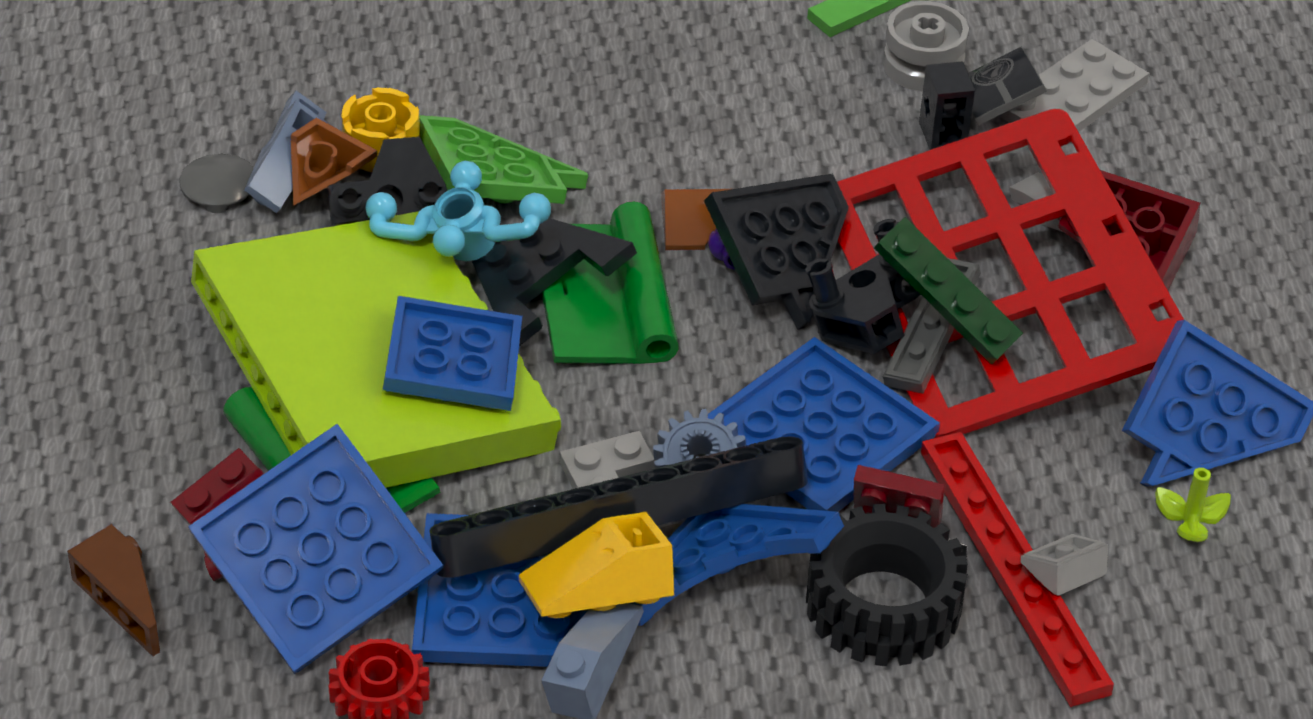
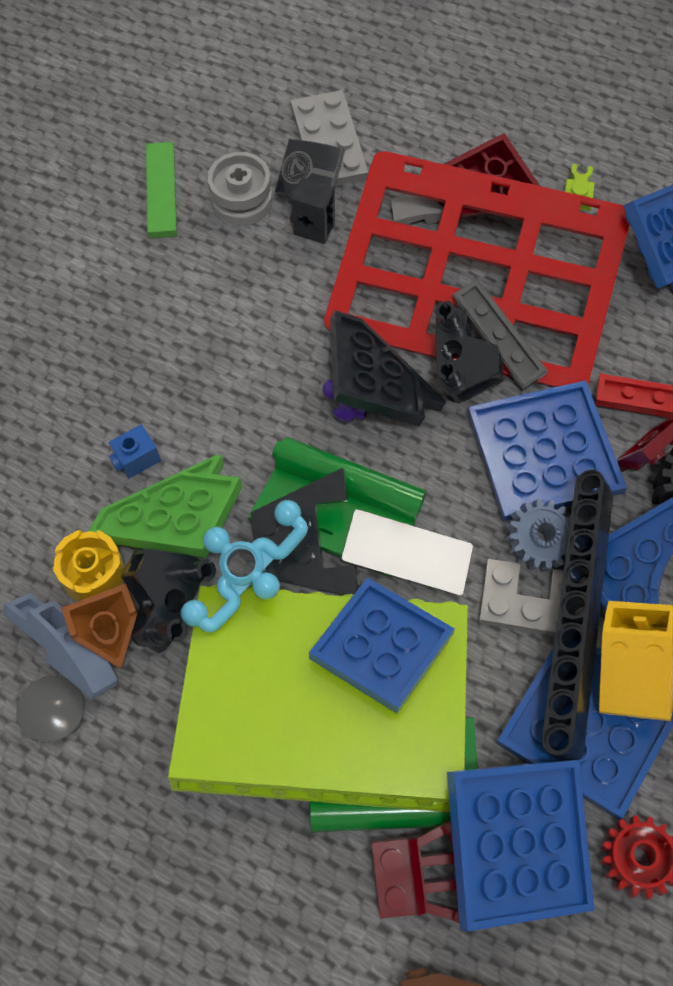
camera: 55 degrees left, 20 degrees up
(536, 110) = (133, 452): none -> blue brick
(594, 364) = (408, 552): none -> white sticker
(686, 218) = (302, 411): dark orange slope -> none
(948, 290) = (506, 309): dark green plate -> none
(1226, 326) = (580, 184): none -> lime plate

